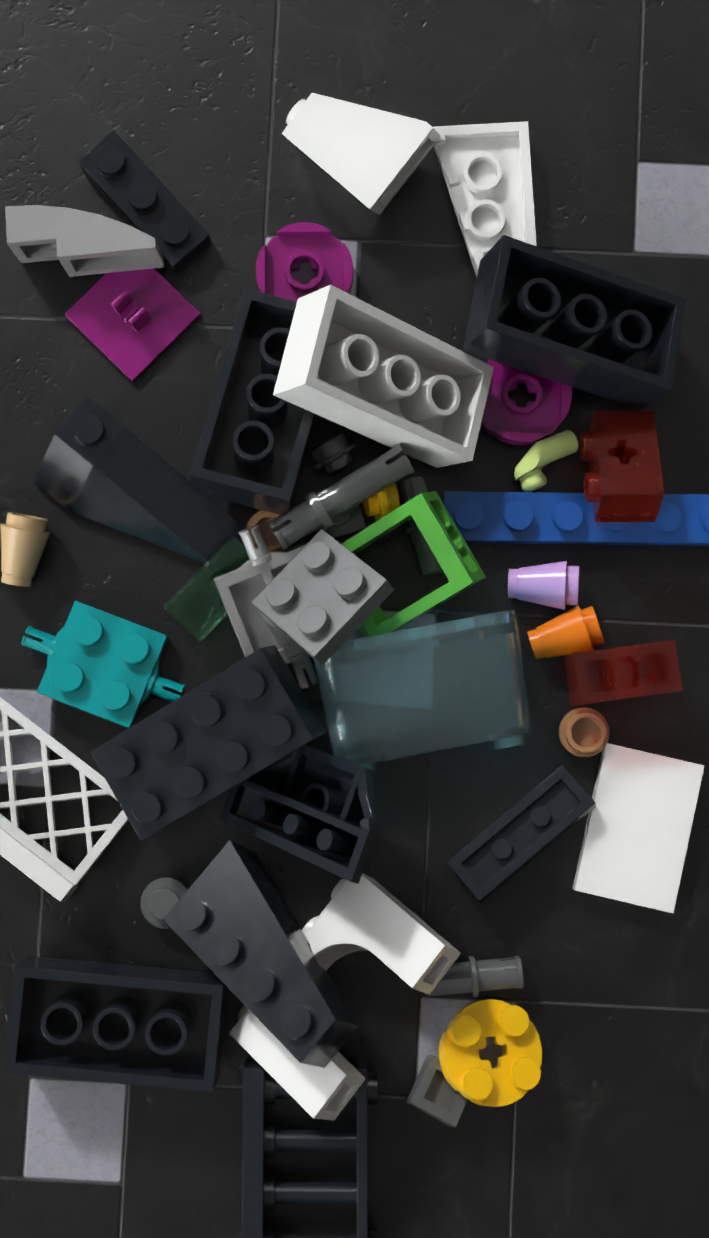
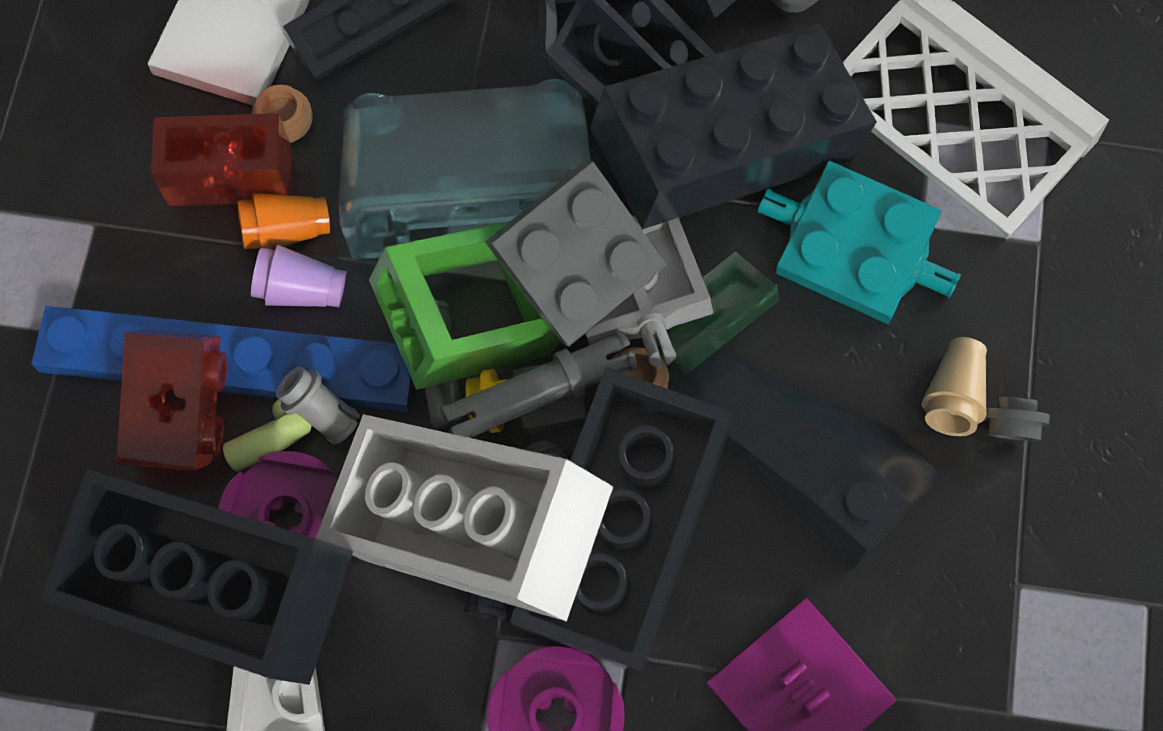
camera: 175 degrees left, 15 degrees down
(521, 481) = (306, 395): none -> light grey pin

